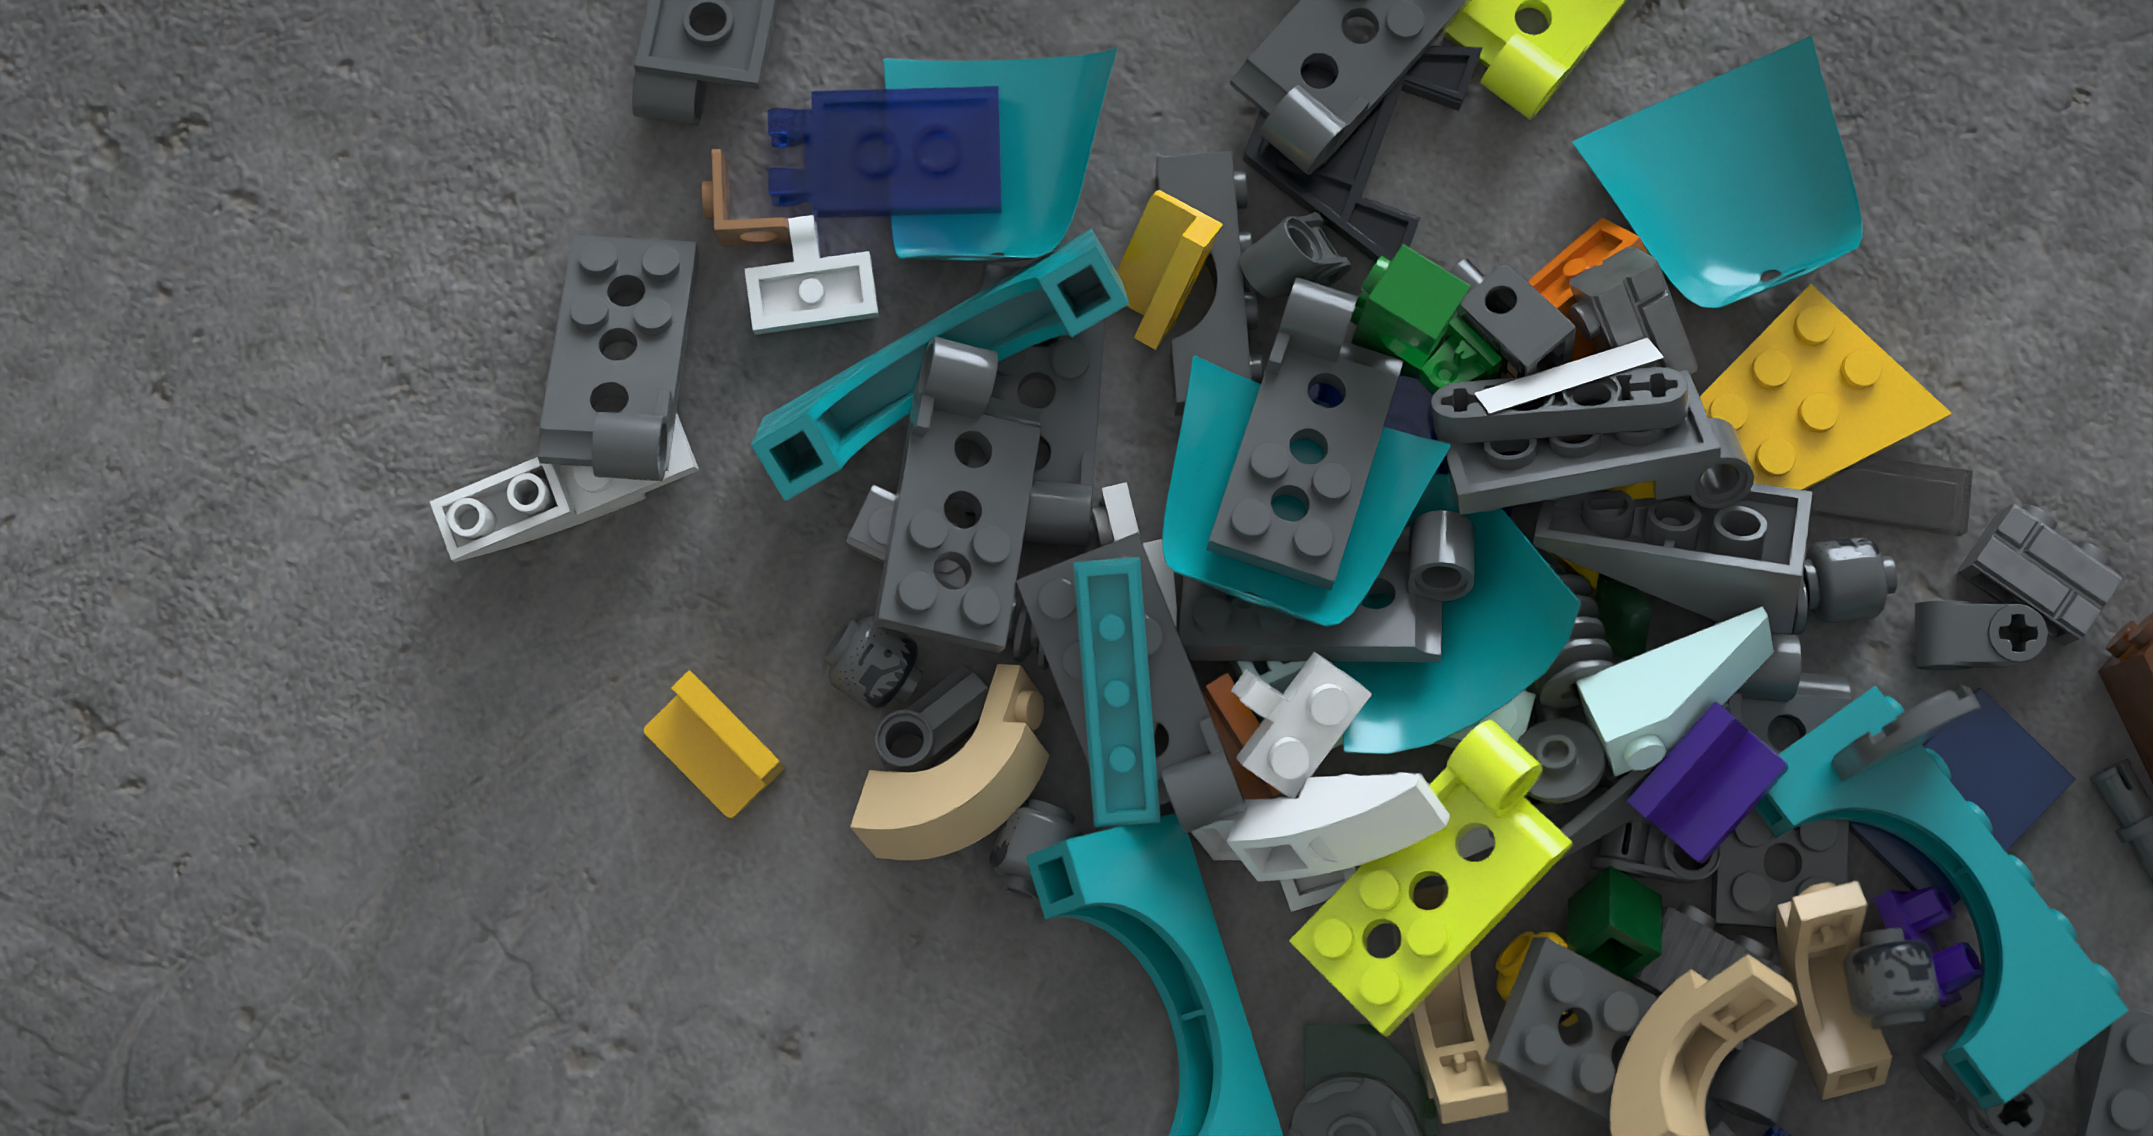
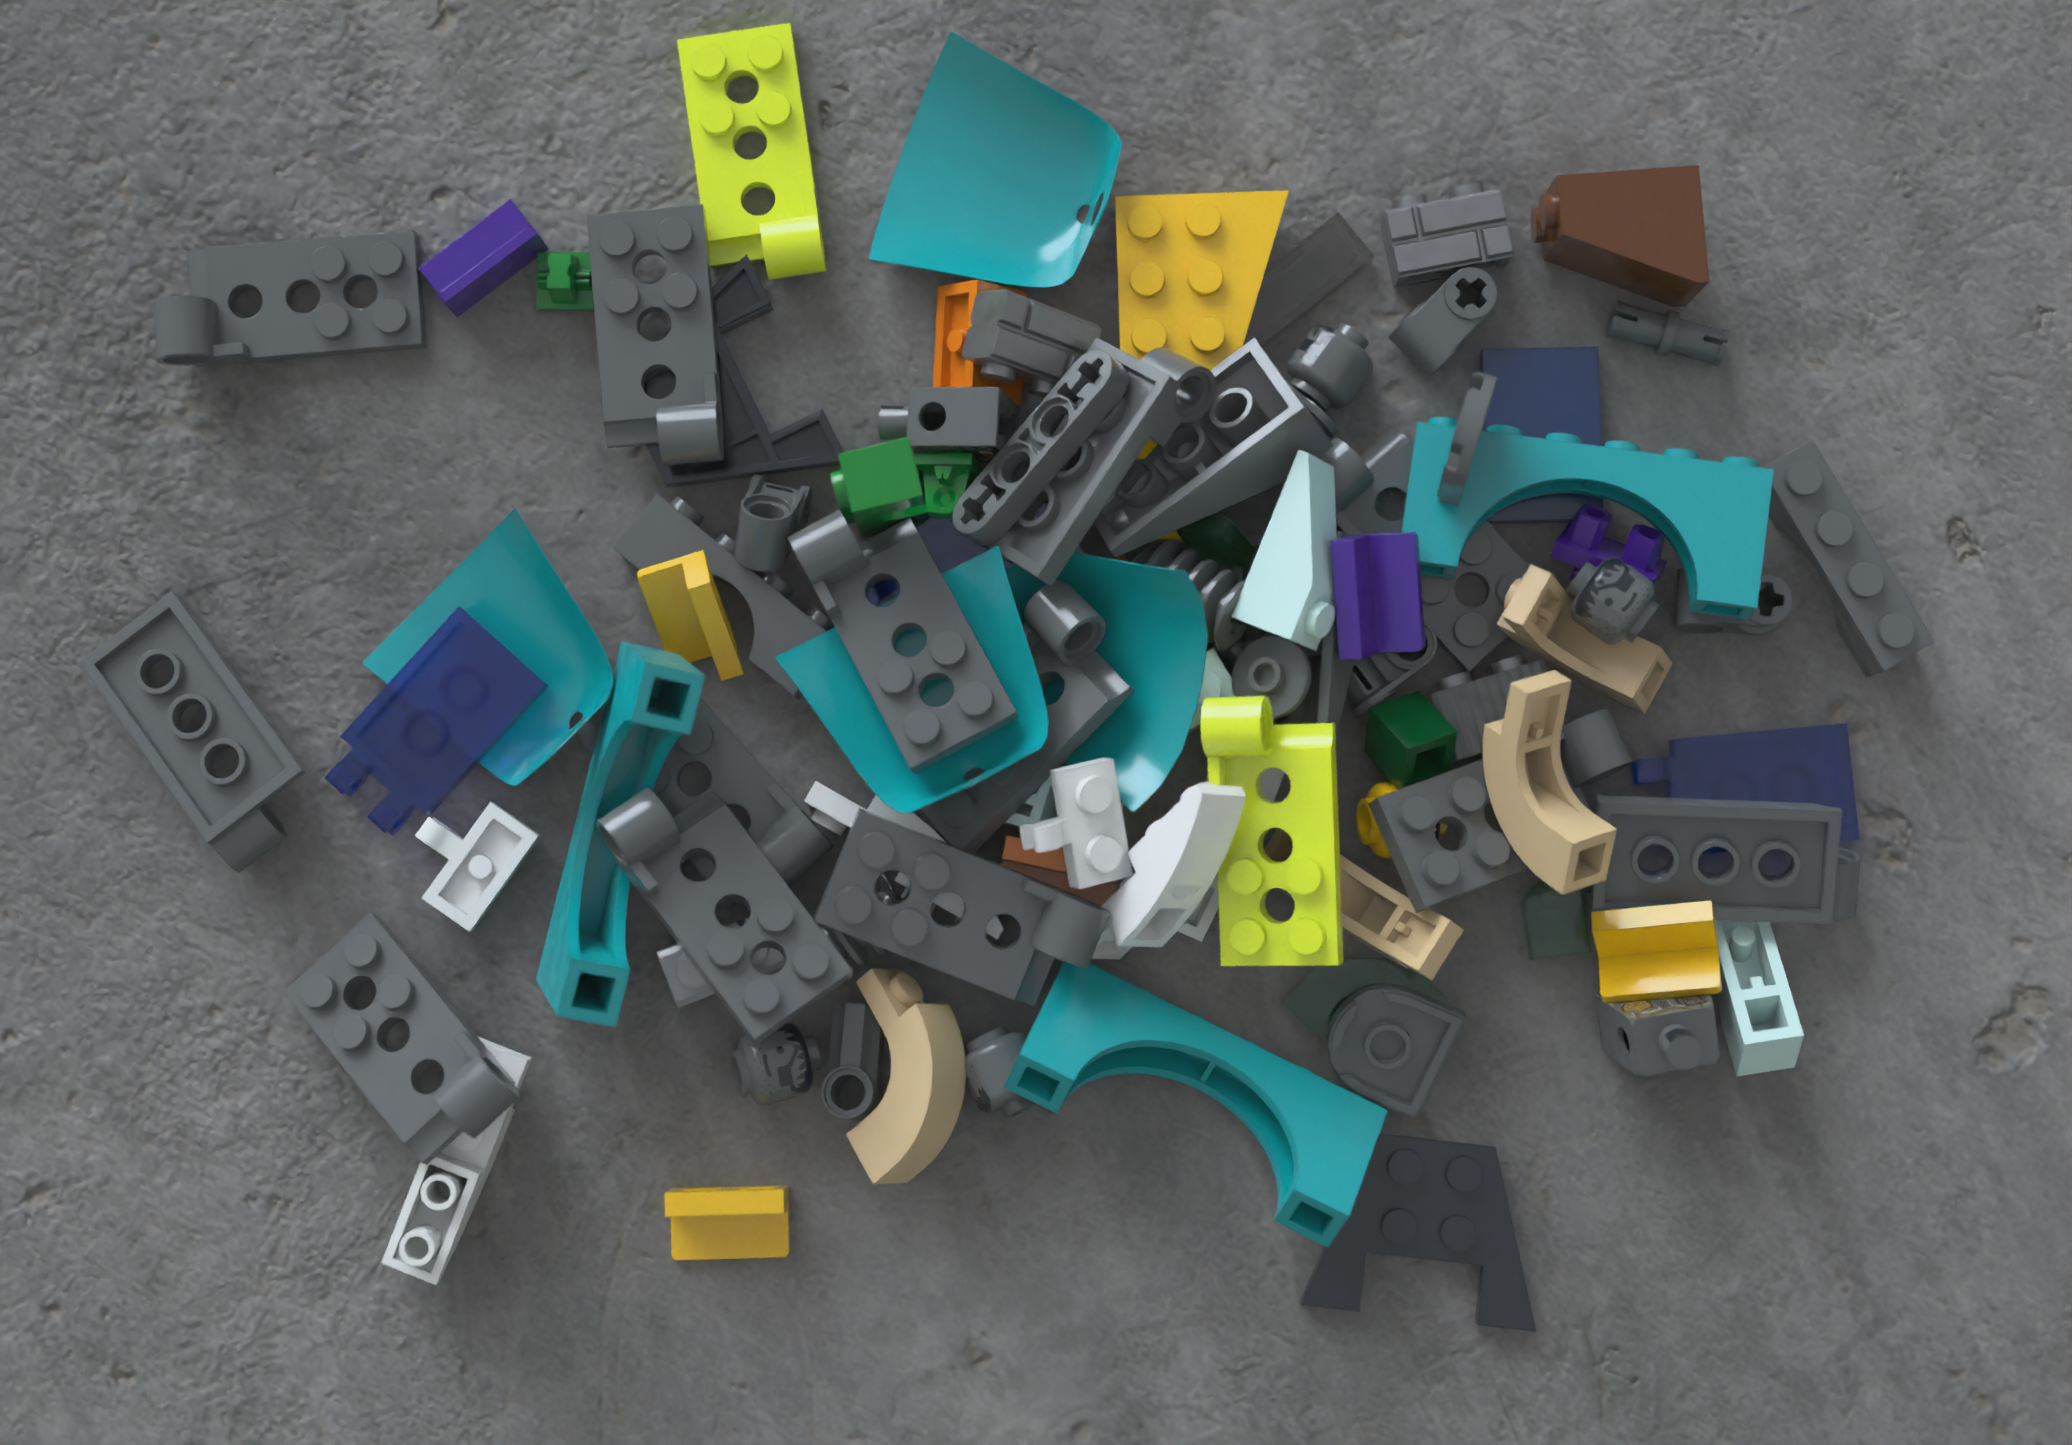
camera: 45 degrees left, 5 degrees up
(737, 232) = (357, 874): medium nougat bracket -> none
(1117, 691) = (952, 924): teal tile -> none
(1568, 375) = (1026, 422): white sticker -> none

